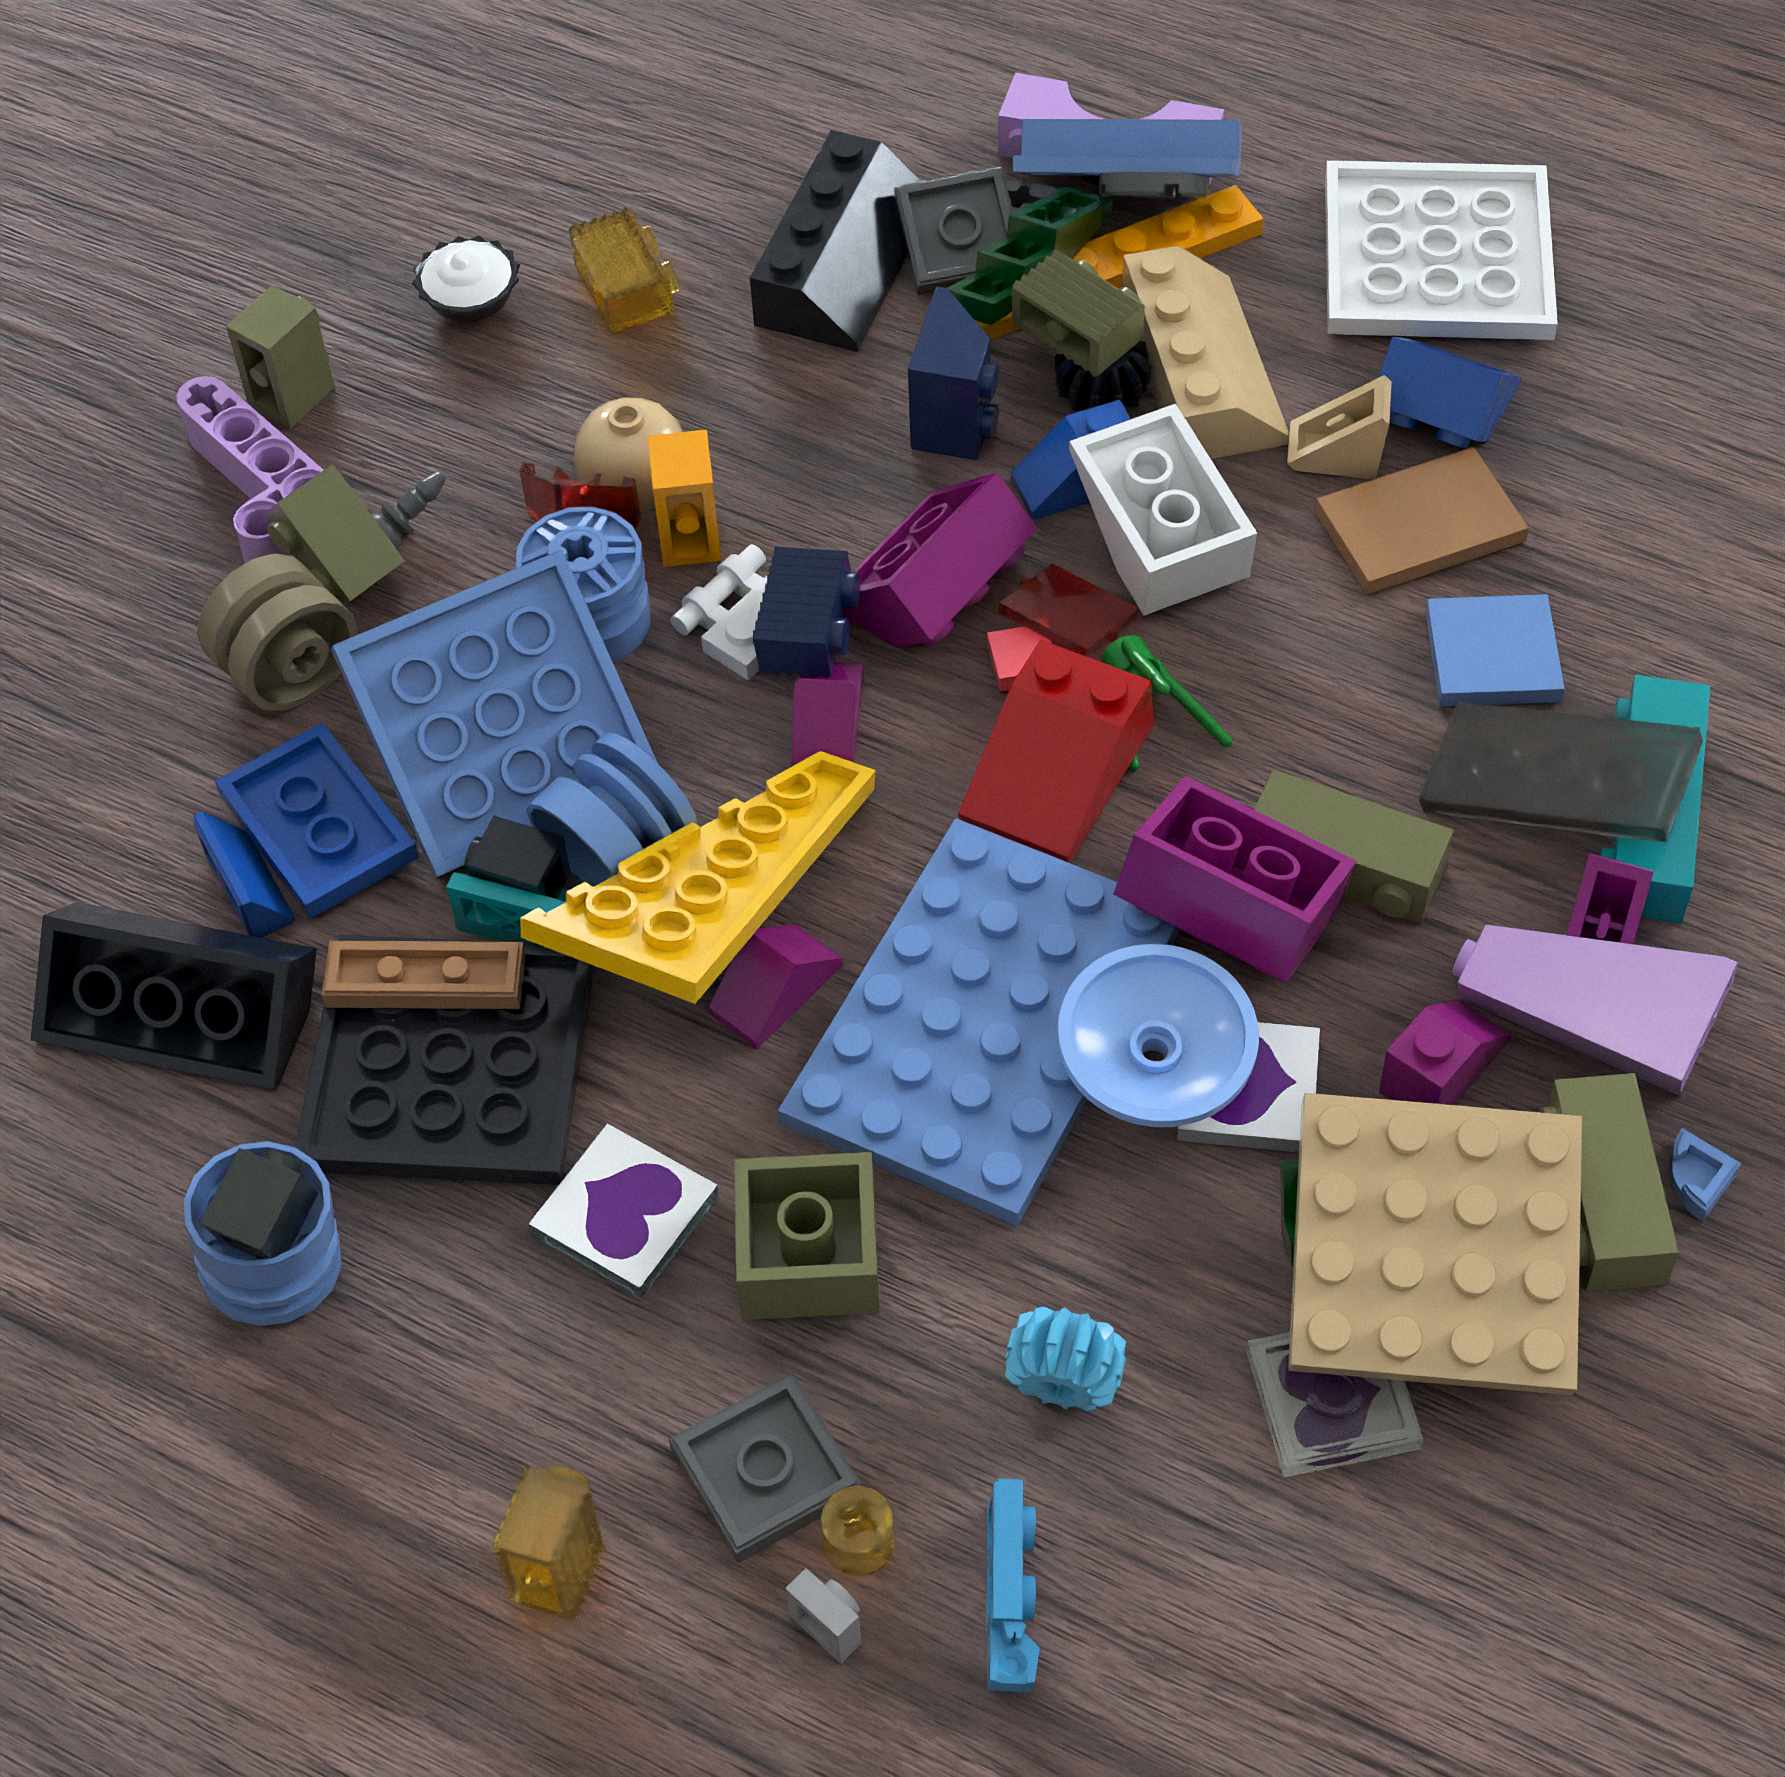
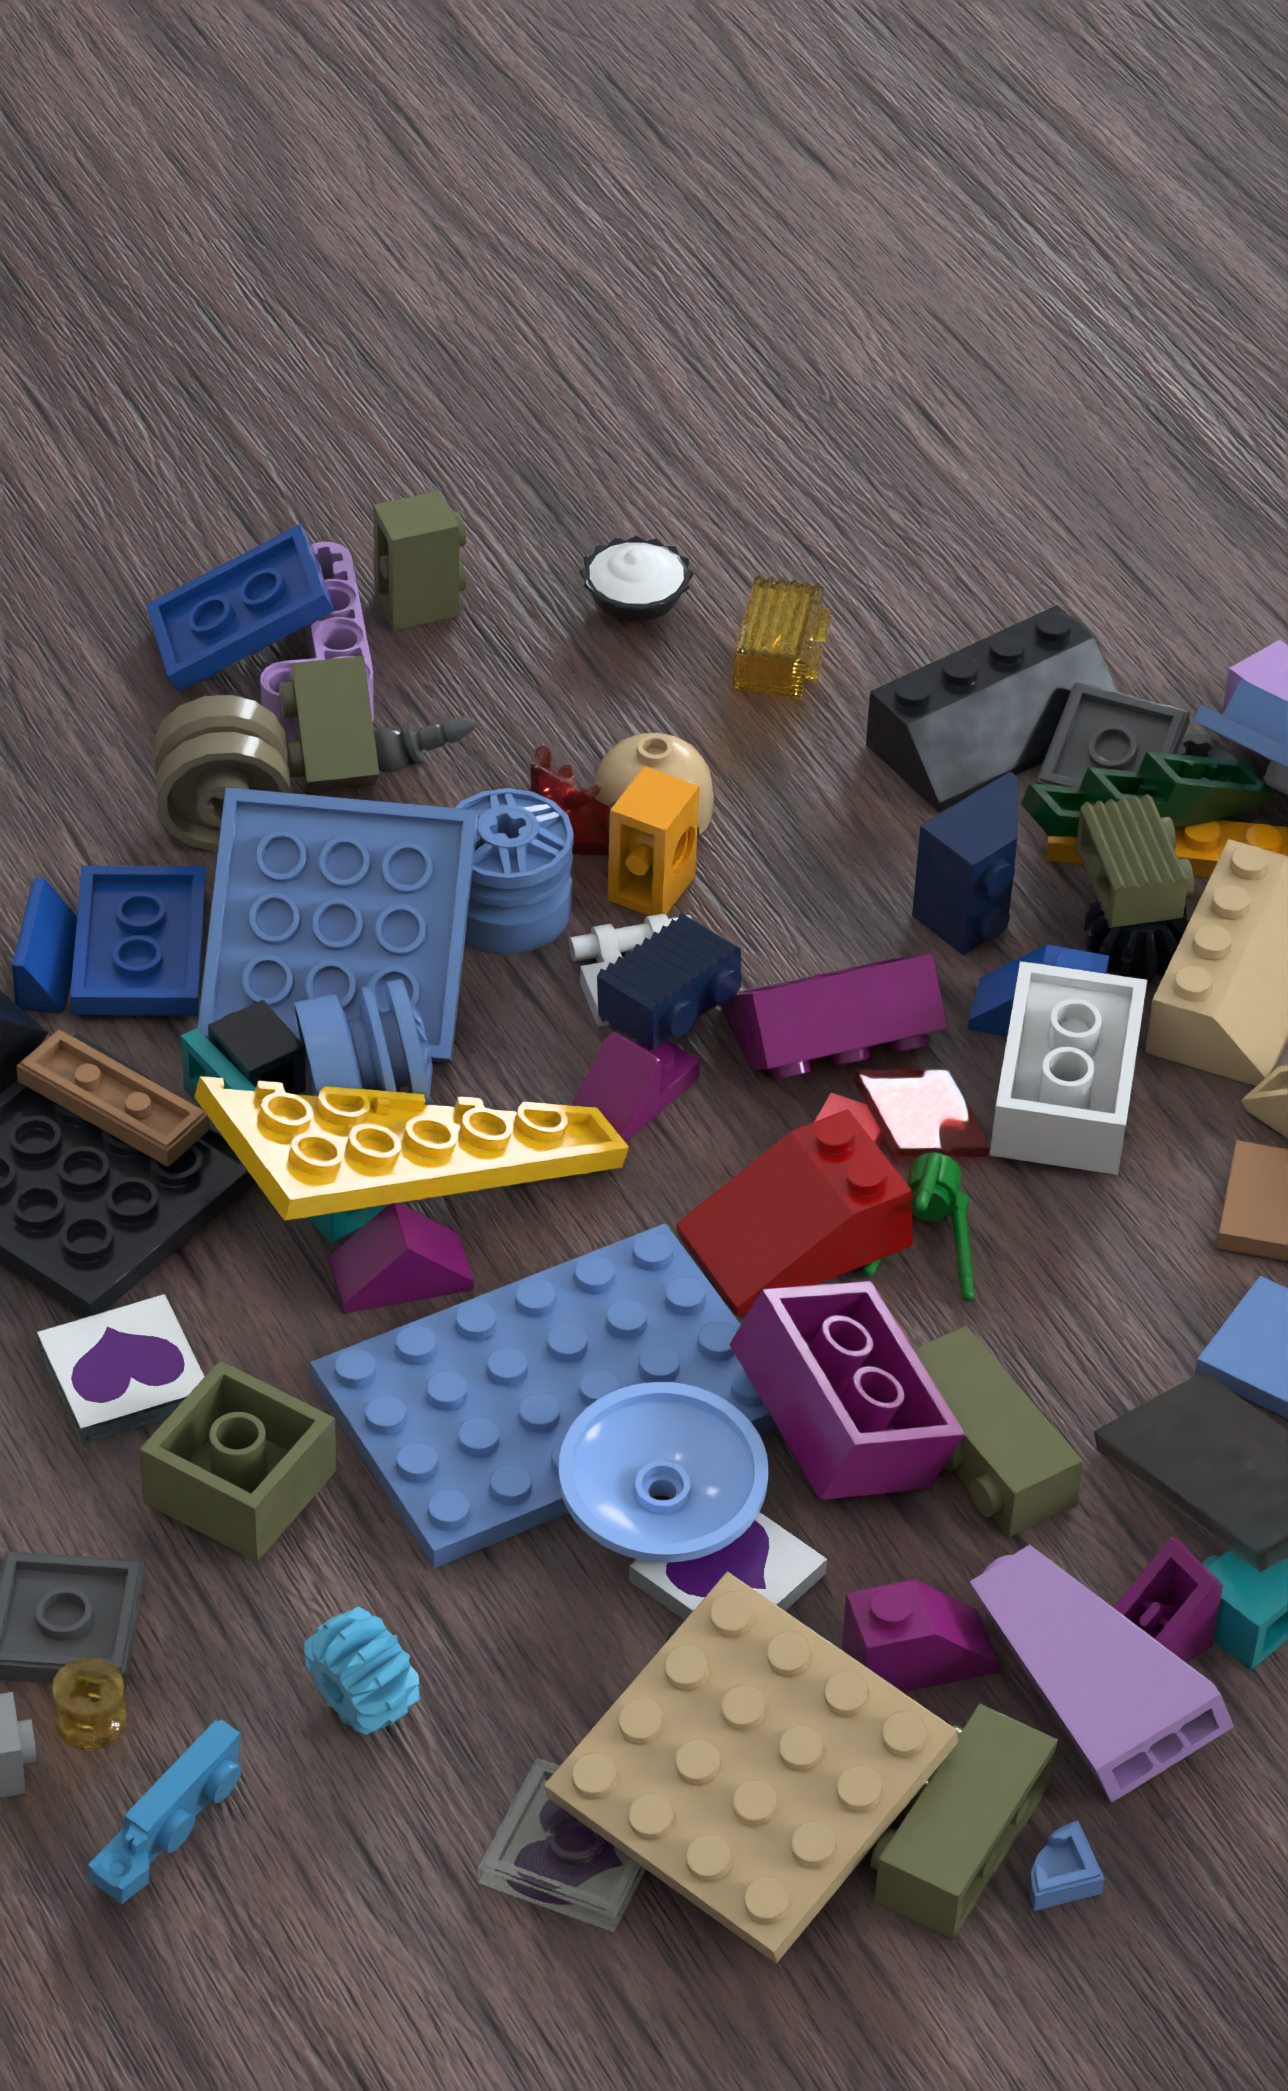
camera: 30 degrees right, 10 degrees down
(163, 477) = (239, 608): none -> blue plate

